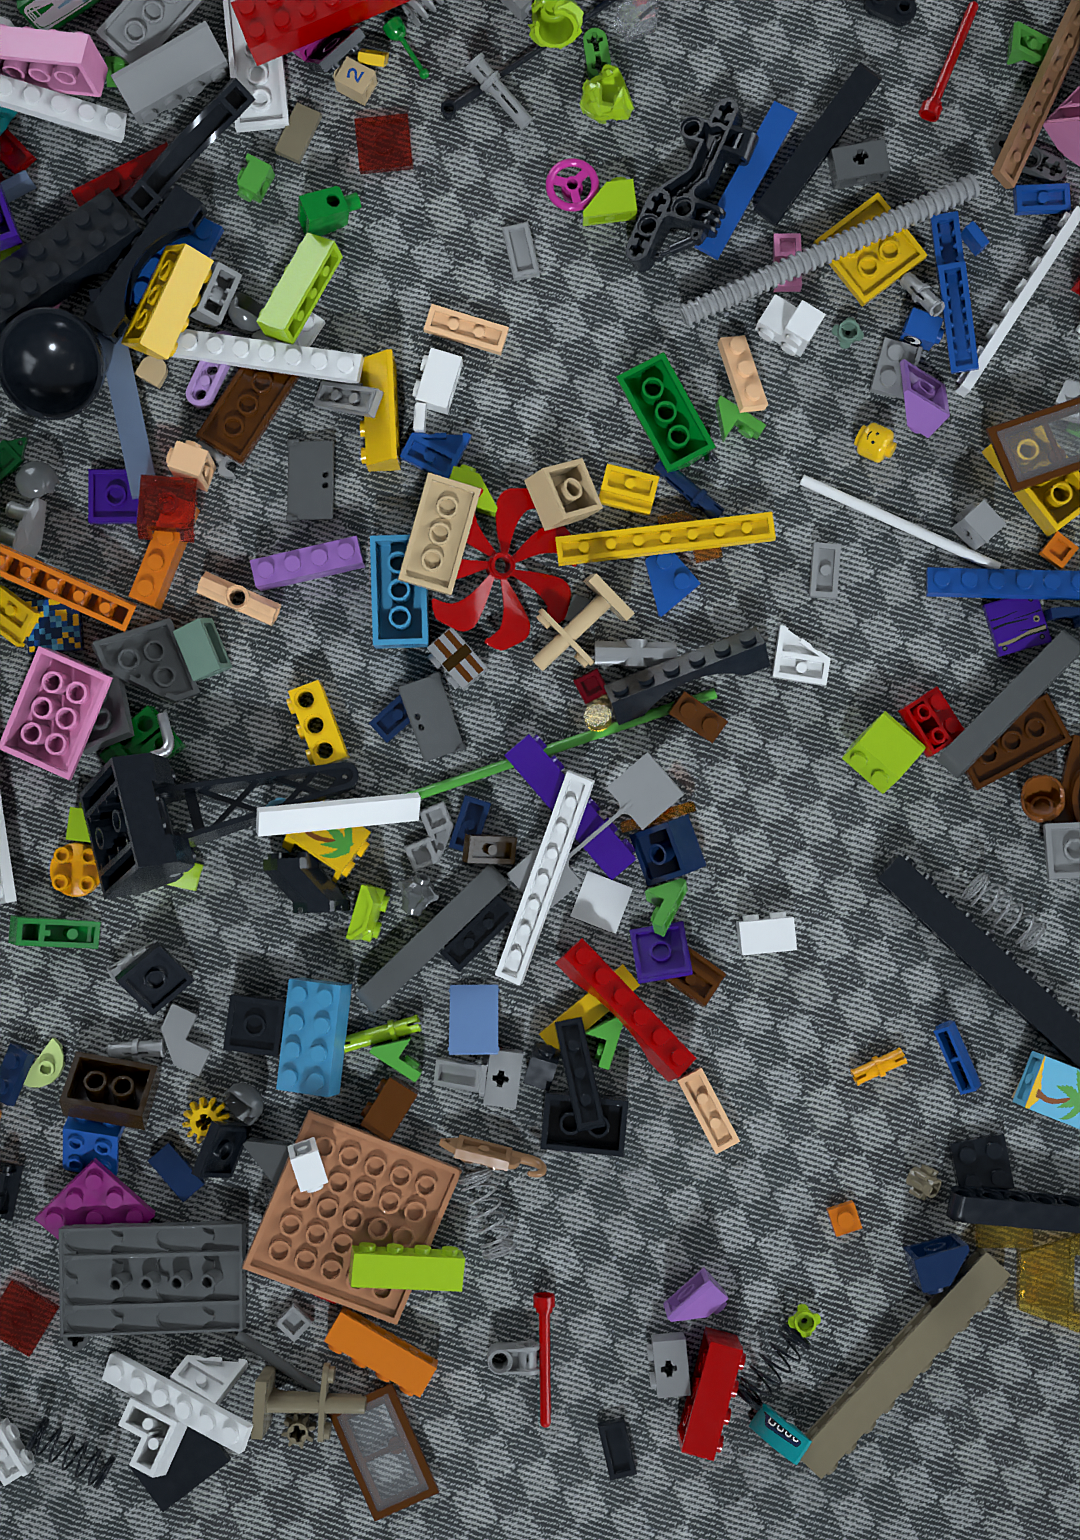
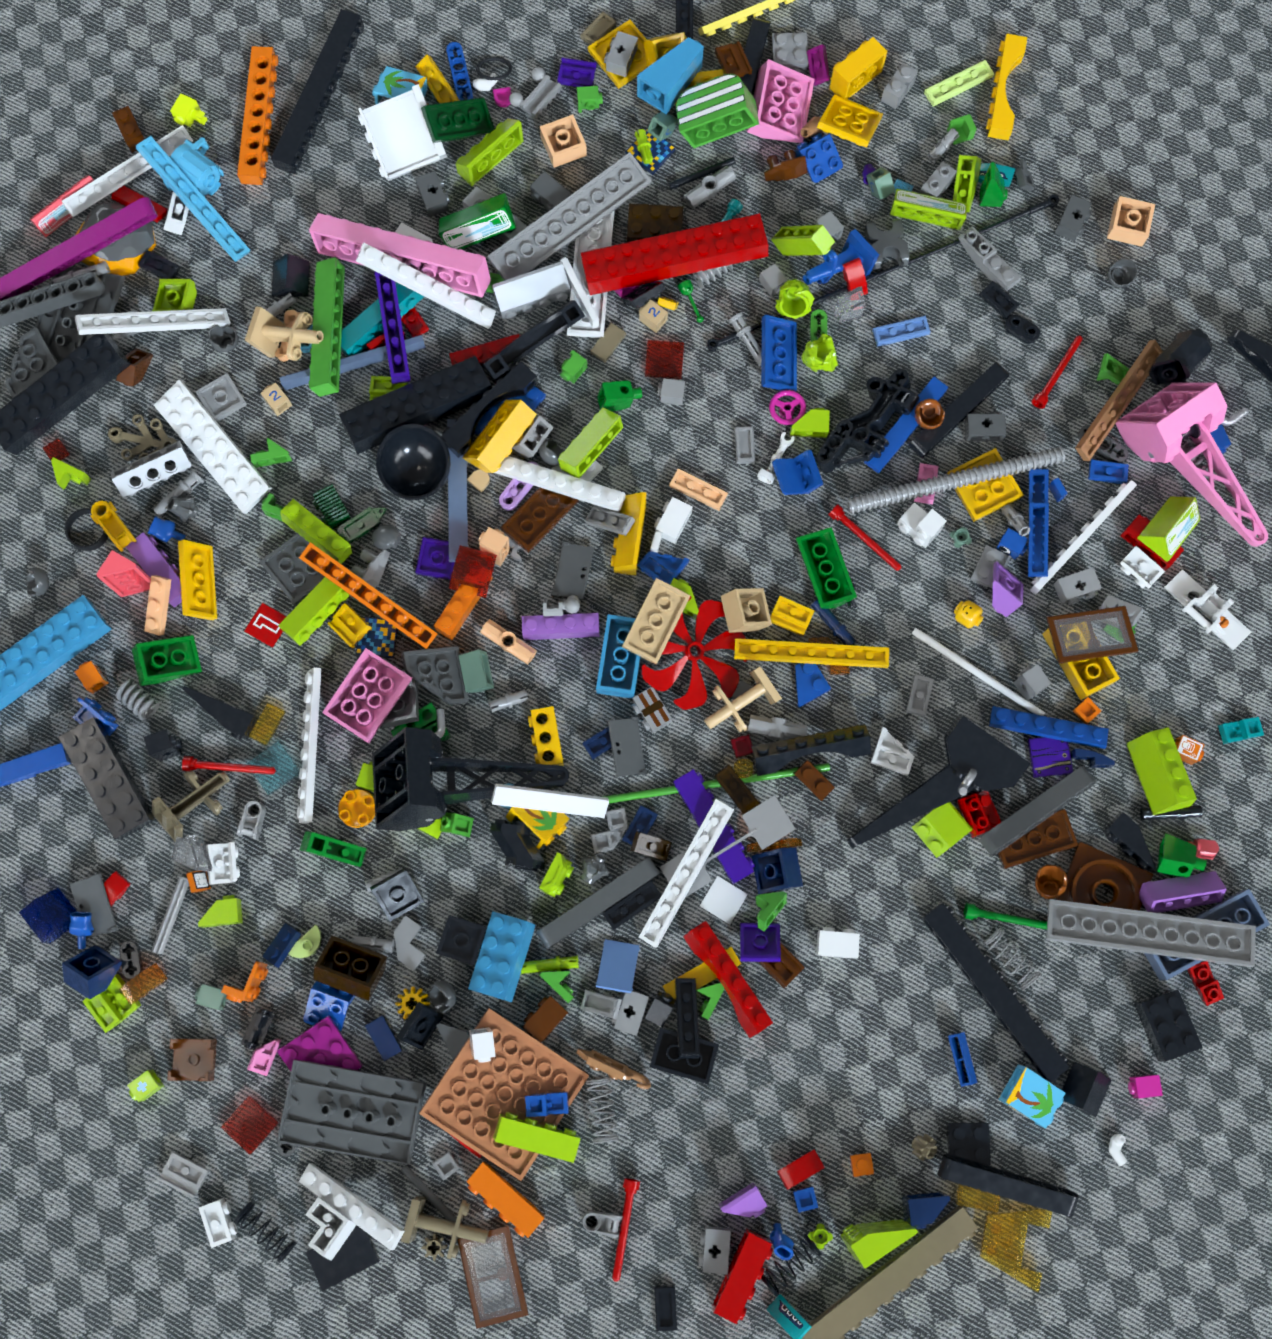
camera: 15 degrees right, 10 degrees down
(20, 1227) = (263, 1057): none -> bright pink tile
(208, 1376) = (377, 1193): white wing -> none
(217, 867) = (456, 824): none -> bright green bracket
(242, 65) = (580, 294): none -> white tile
(255, 682) = (508, 700): none -> light grey pin
(312, 532) = (570, 604): none -> light grey gear
(402, 190) = (671, 391): none -> light grey brick
(411, 1220) = (546, 1104): none -> blue slope
(546, 105) = (779, 353): none -> blue plate
(560, 291) = (767, 475): none -> white piece
(594, 749) = (736, 789): none -> dark brown tile
(603, 281) = (798, 474): none -> blue bracket
(670, 330) = (838, 514): none -> red piece
(708, 1110) = (775, 1064): light nougat plate -> none
(716, 40) = (901, 331): none -> medium blue tile
(729, 416) = (872, 578): bright green slope -> none
(742, 374) = (883, 551): light nougat plate -> none
(755, 1343) = (782, 1243): none -> blue piece
(764, 1240) = (800, 1169): none -> red slope
(777, 159) = (929, 414): none -> dark orange hair
(777, 1277) = (805, 1199): none -> blue plate
(878, 1066) = (904, 1055): light orange pin -> none
(881, 1318) = (875, 1239): none -> lime slope
(915, 657) = (974, 762): none -> black piece
(942, 857) = (972, 911): none -> green piece
(1033, 364) = (1085, 579): none -> light grey brick

